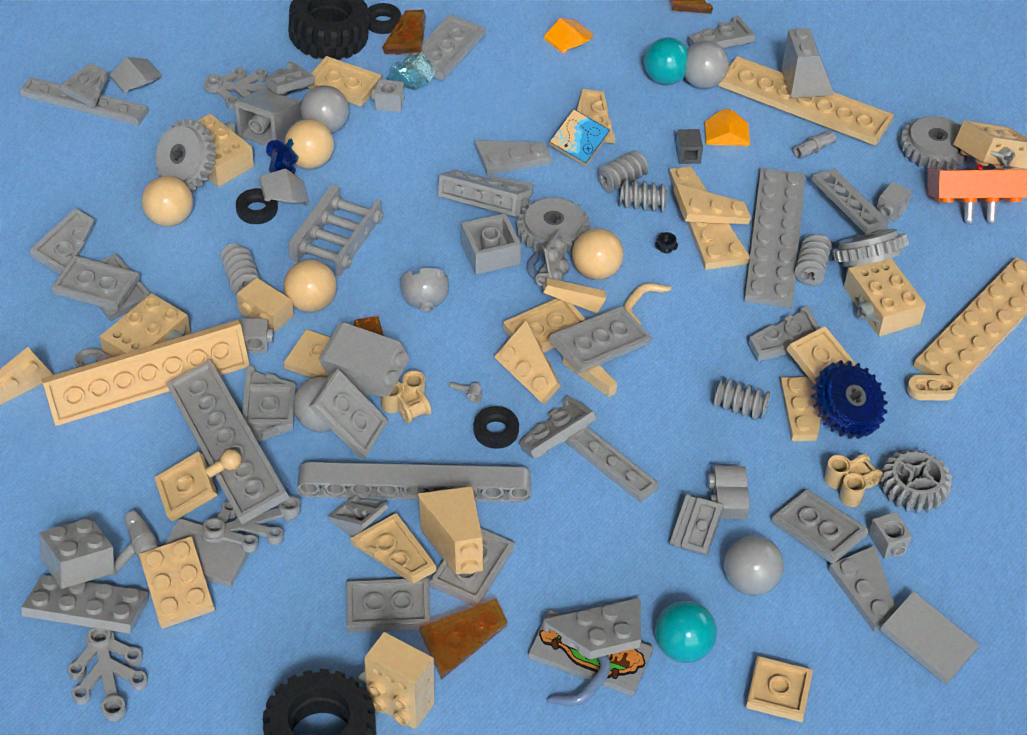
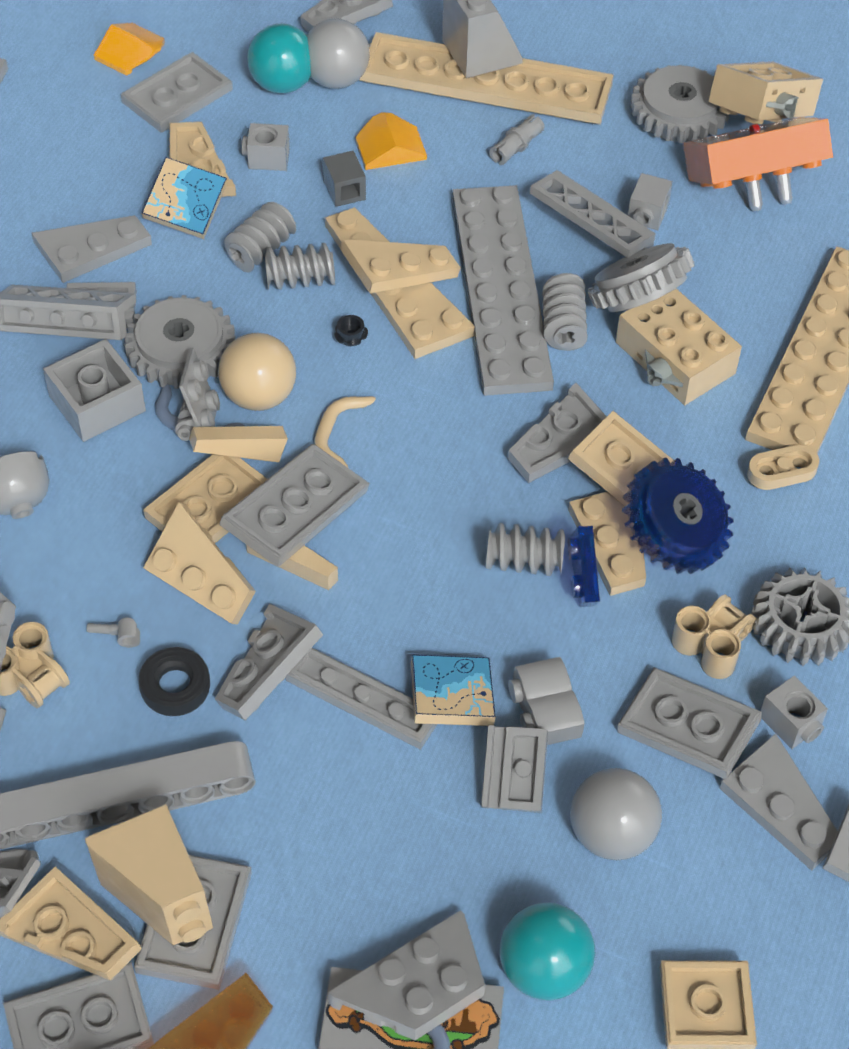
camera: 15 degrees left, 5 degrees up
(592, 69) = (176, 92): none -> light grey tile
(643, 116) = (267, 146): none -> light grey brick
(670, 471) = (452, 690): none -> tile
(778, 406) = (583, 557): none -> clear blue wing

